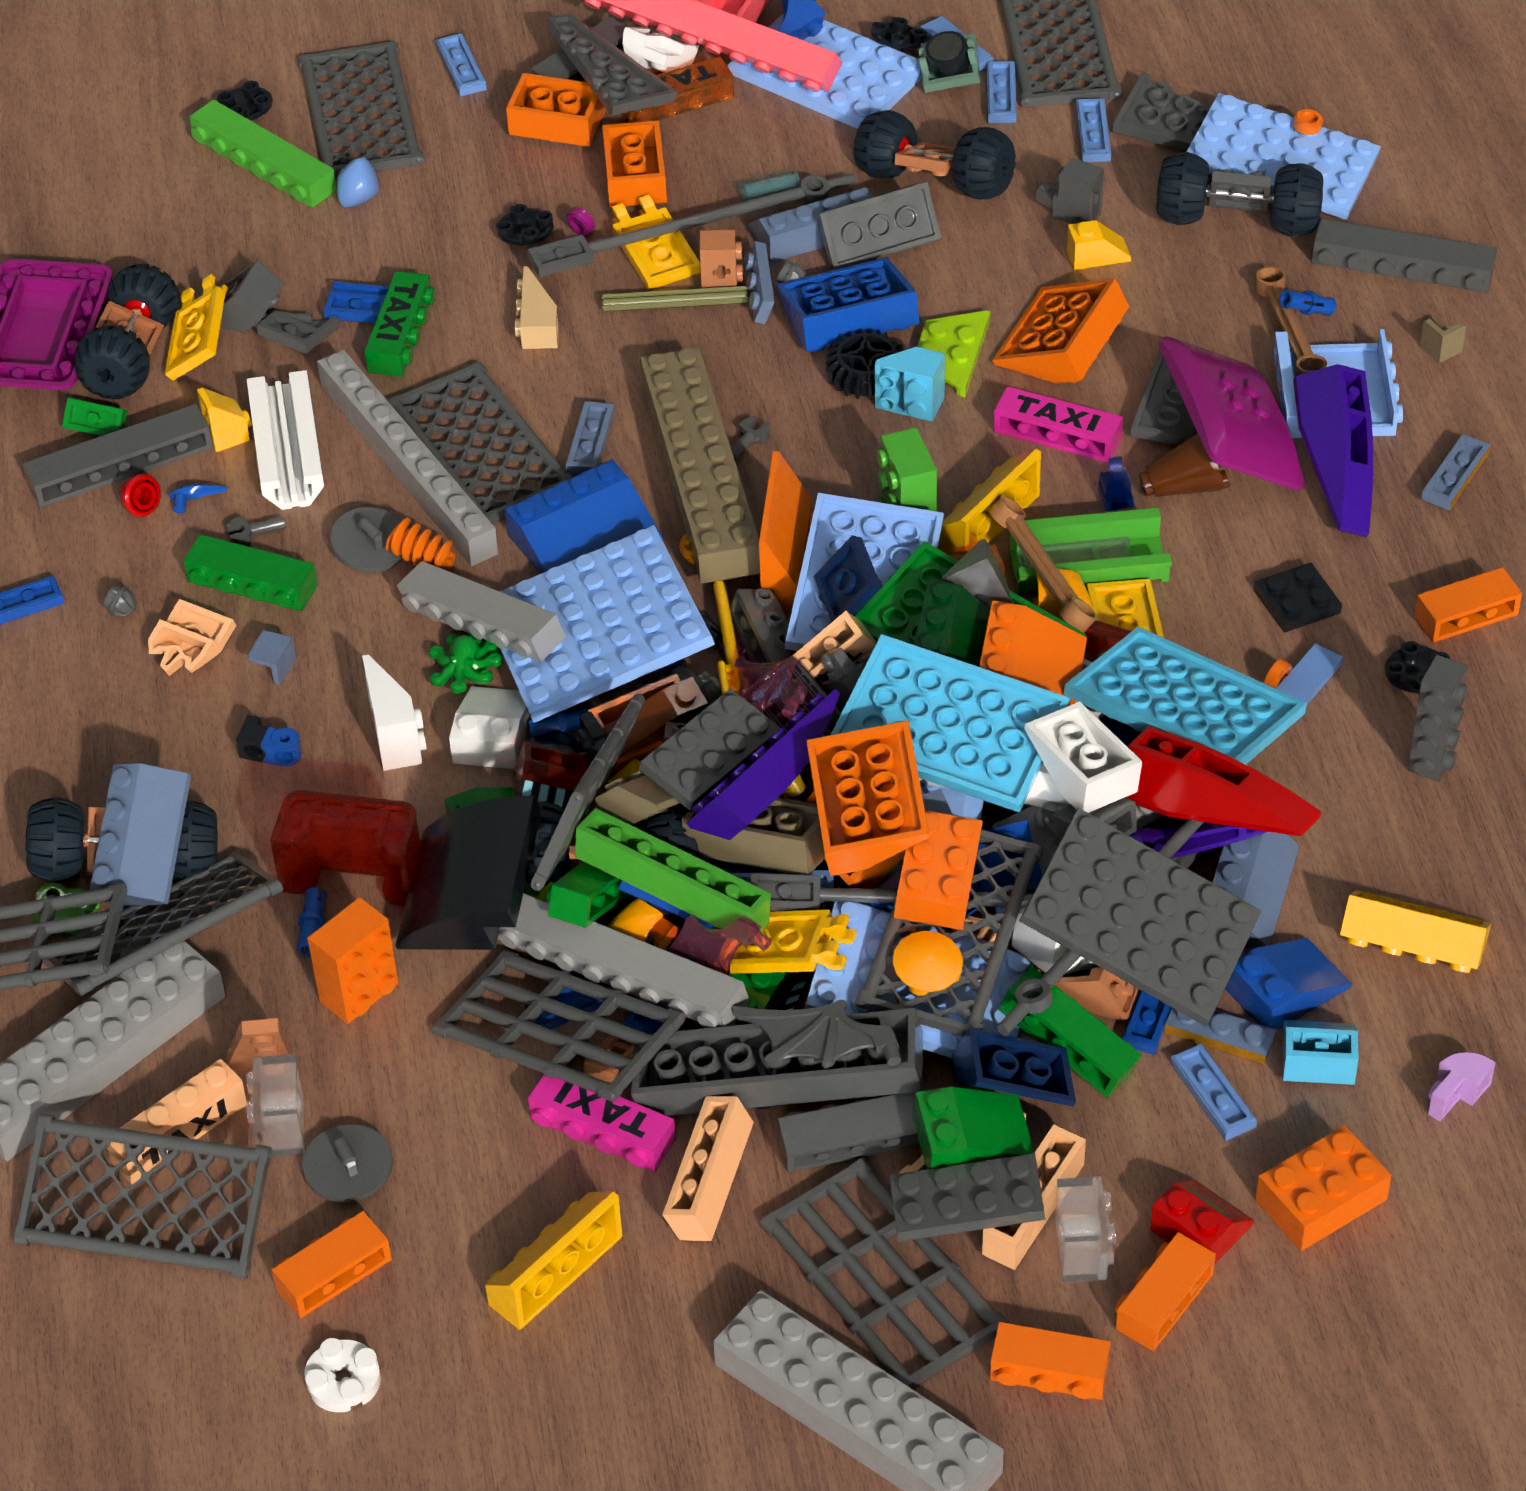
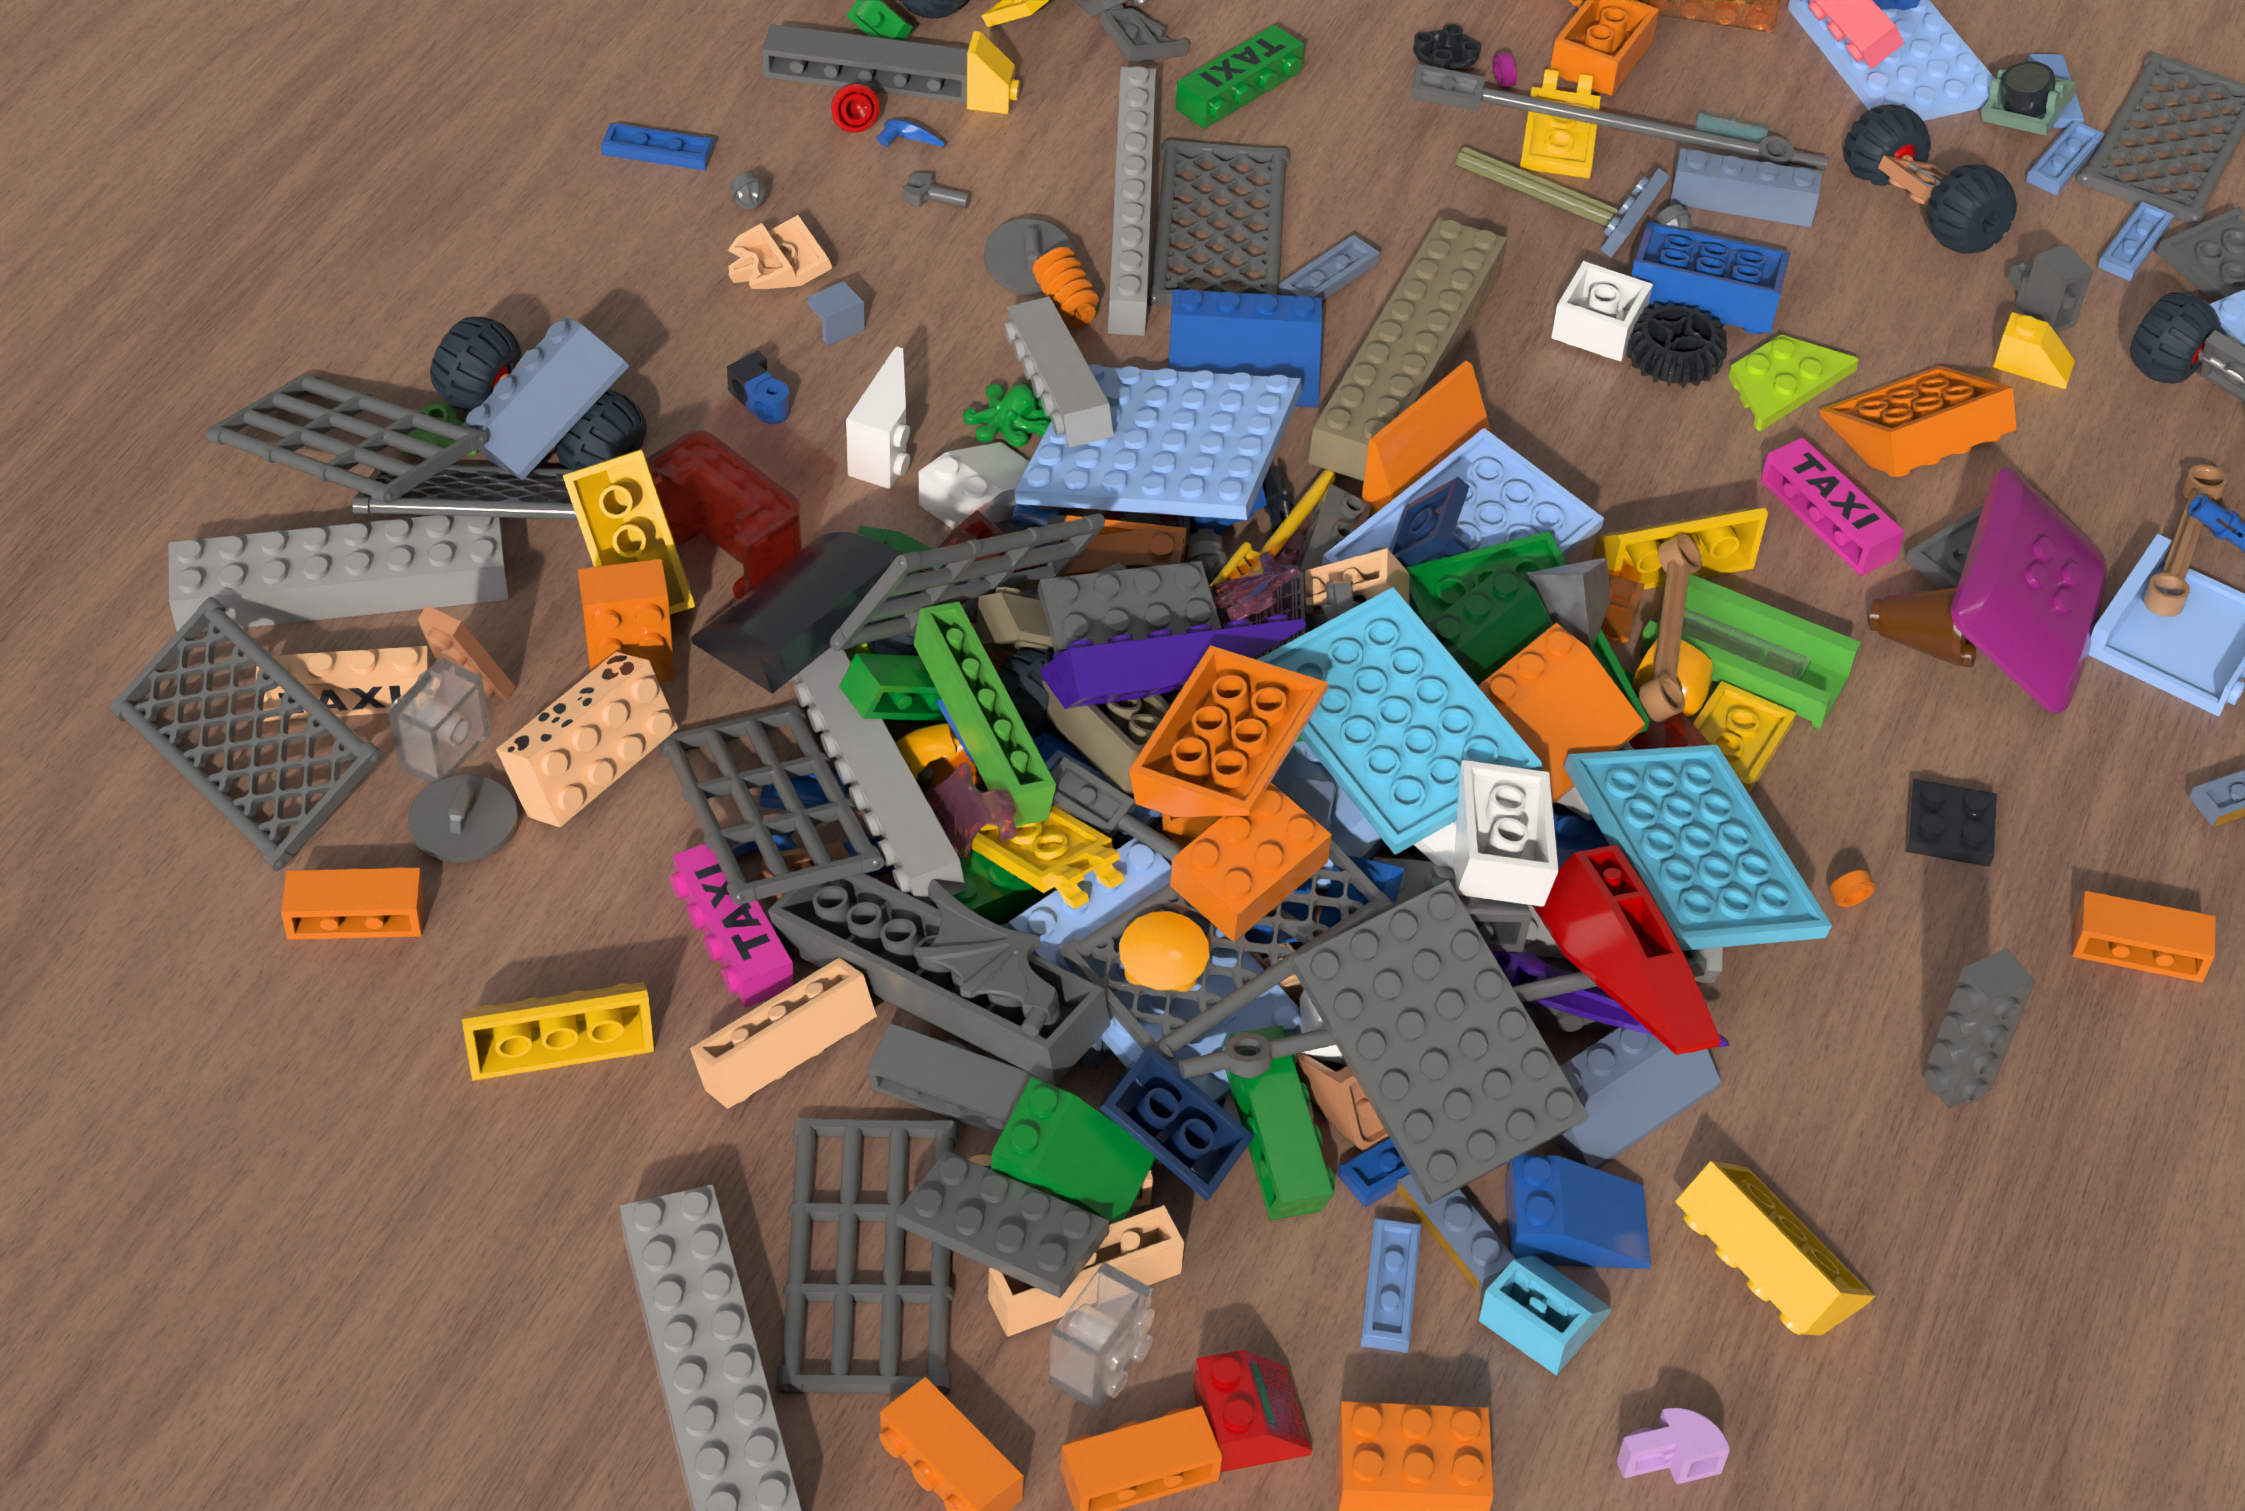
camera: 30 degrees right, 0 degrees up
(250, 572) = (889, 228): green brick -> none
(286, 440) = (1031, 125): white piece -> none
(293, 883) = (627, 521): none -> yellow slope
(337, 1356) = (265, 994): white plate -> none
(355, 302) = (1213, 35): blue plate -> none
(396, 1055) = (587, 739): none -> light nougat brick
(537, 314) = (1377, 137): tan slope -> none
(719, 258) = (1605, 166): nougat brick -> none
(750, 436) = (1498, 352): dark grey bar -> none
(802, 366) = (1600, 310): none -> white brick
(879, 225) = (1806, 217): dark grey plate -> none
(898, 34) = (1996, 50): black dish -> none
(906, 471) = (1601, 462): bright green brick -> none
(911, 383) = (1702, 382): medium azure slope -> none
(1115, 486) = (1840, 599): clear blue piece -> none
(1311, 673) = (1882, 914): medium blue tile -> none
(1339, 439) = (2130, 682): dark purple wedge -> none
(1409, 665) = (2042, 965): black dish -> none

